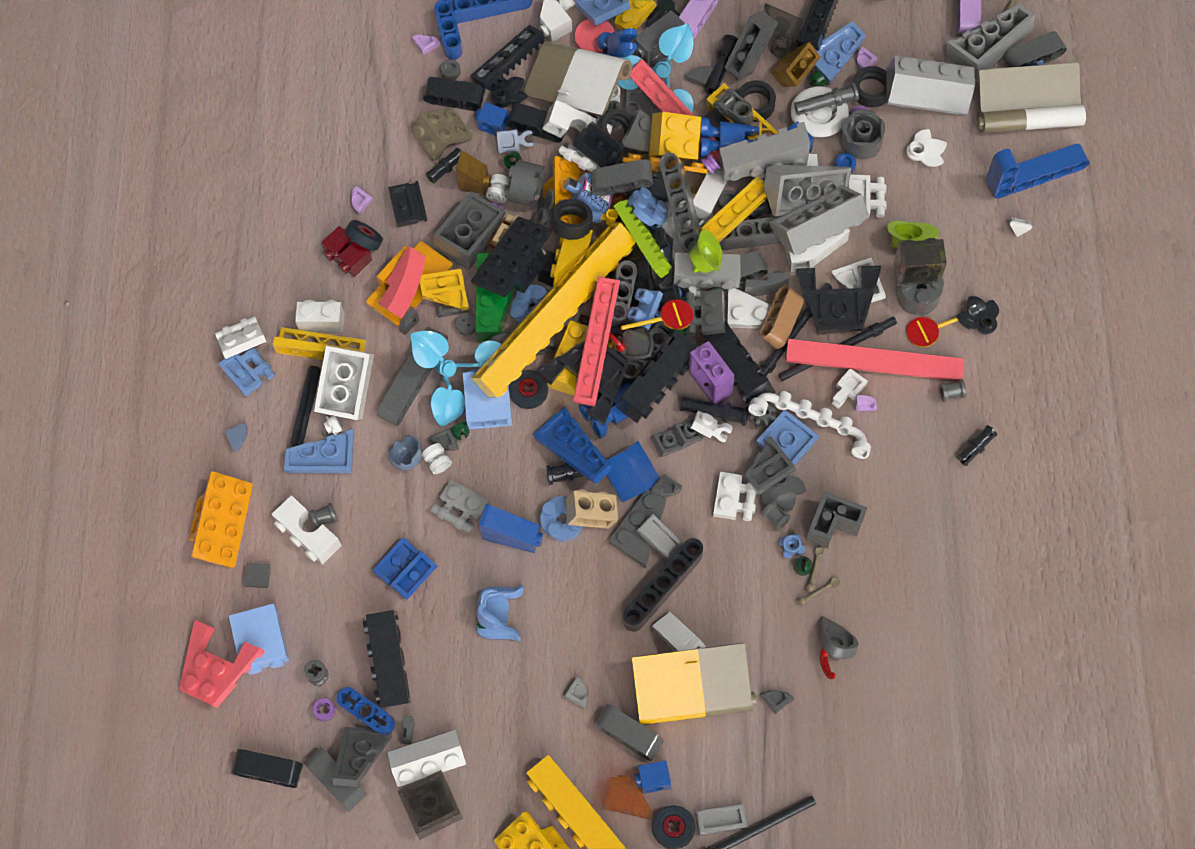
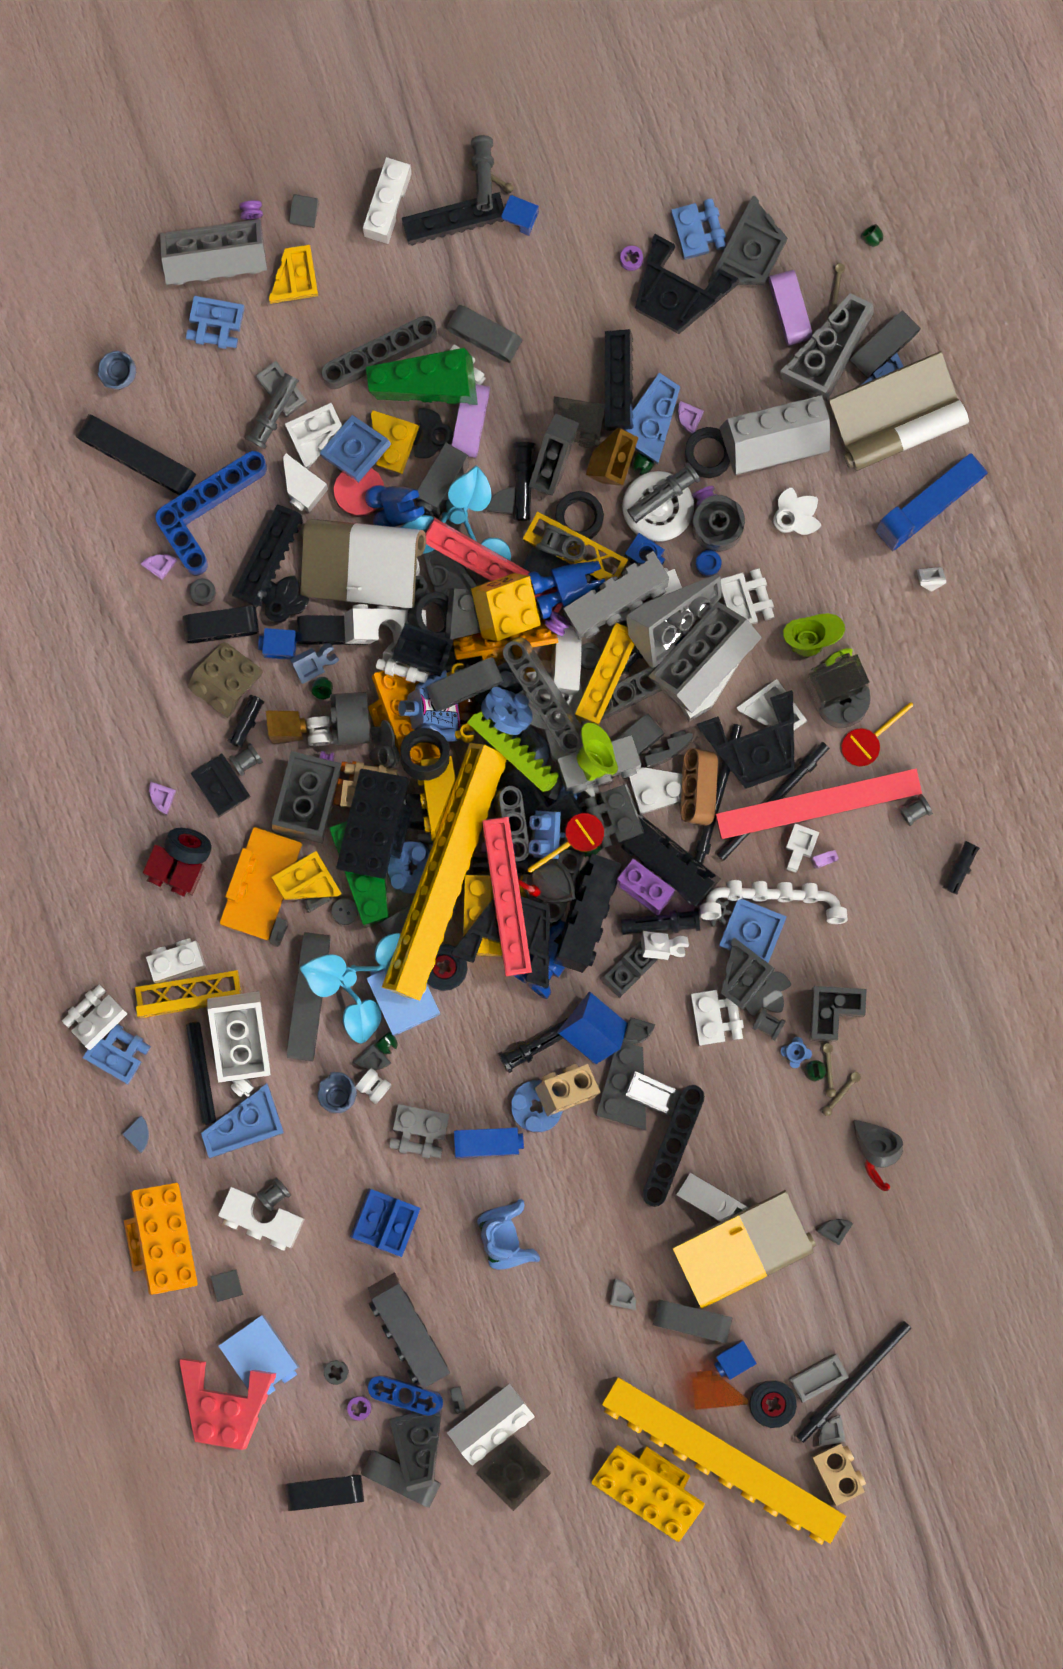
camera: 20 degrees left, 15 degrees up
(403, 282) = (259, 893): coral slope -> none
(434, 191) = (246, 759): none -> dark grey bush
(573, 446) = (517, 1020): blue wing -> none
(977, 313) = (915, 706): black plate -> none

